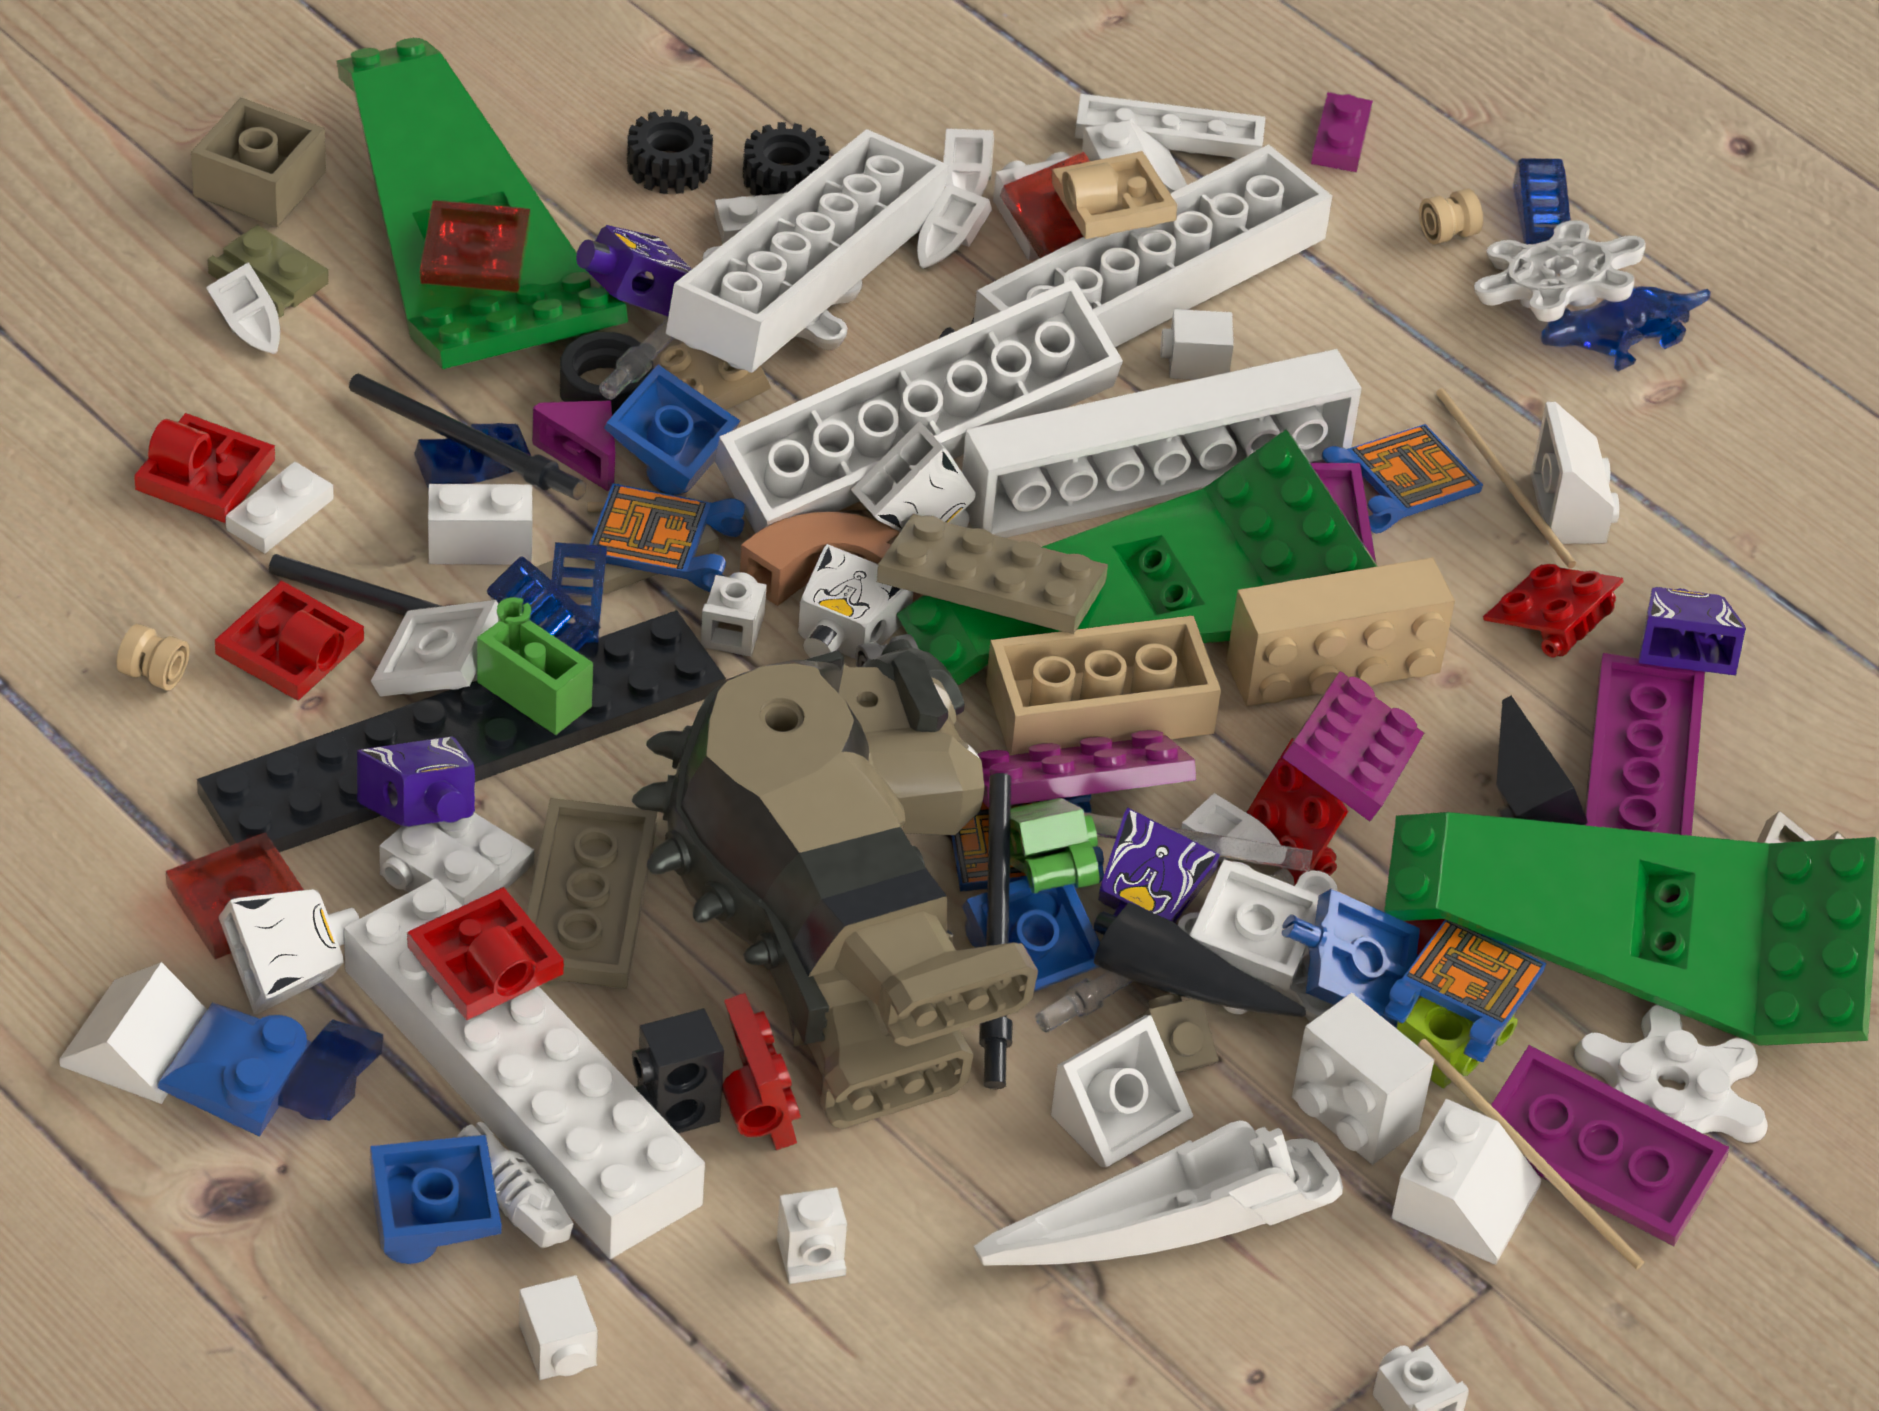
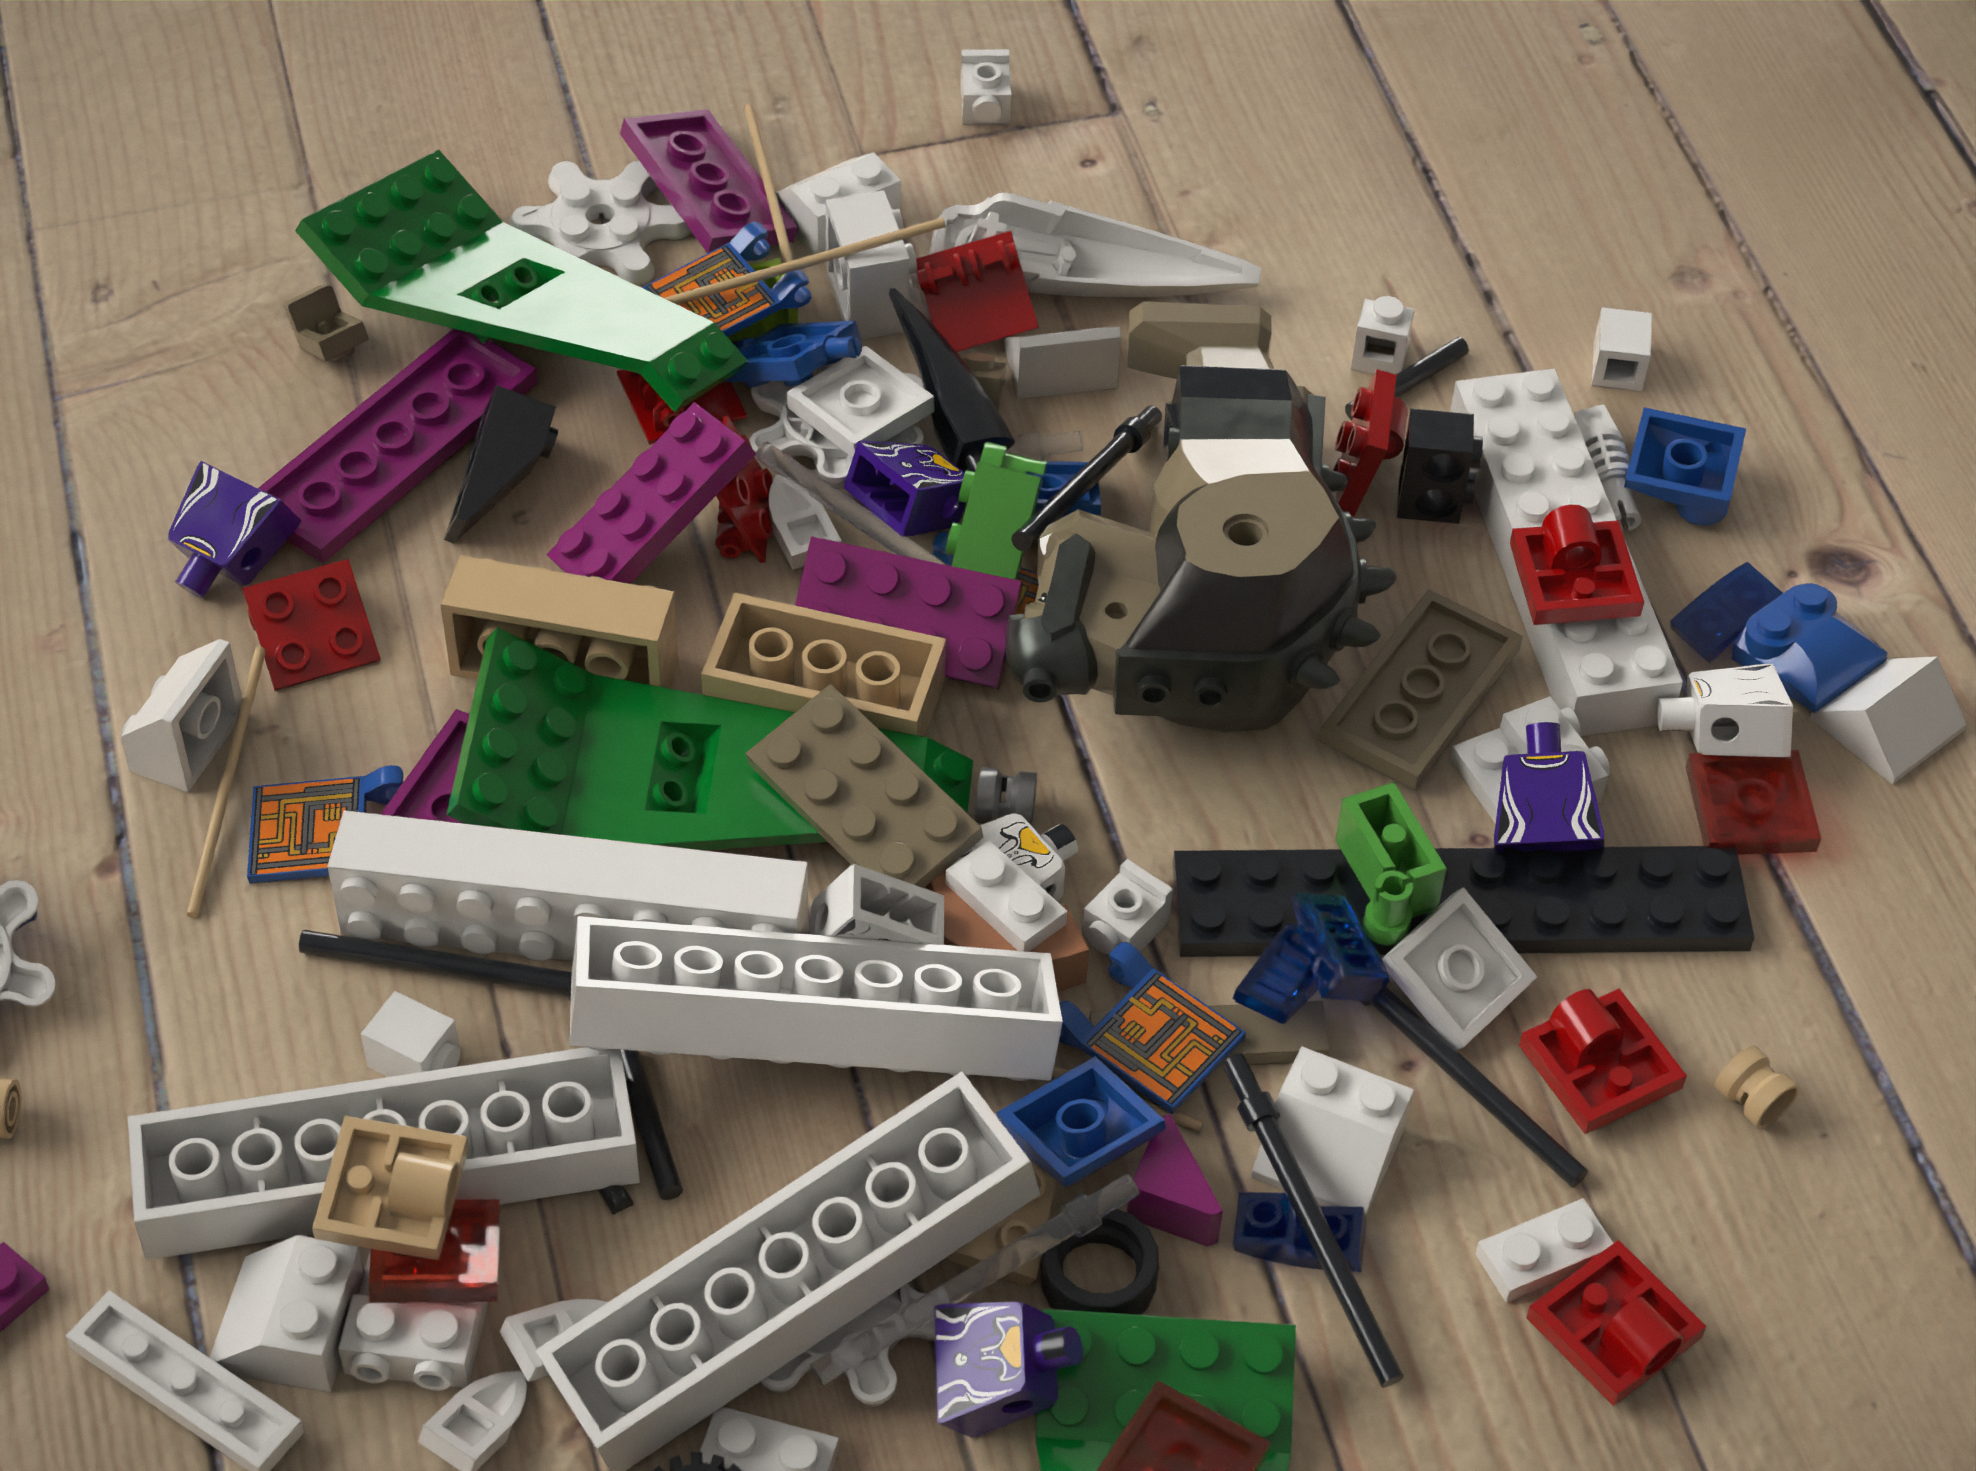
camera: 150 degrees left, 5 degrees up
(765, 1228) = (1426, 367): none -> black bar
(828, 546) = (1006, 897): none -> white plate
(1246, 1089) = (977, 292): none -> red hinge
(1398, 989) = (807, 261): none -> tan axle

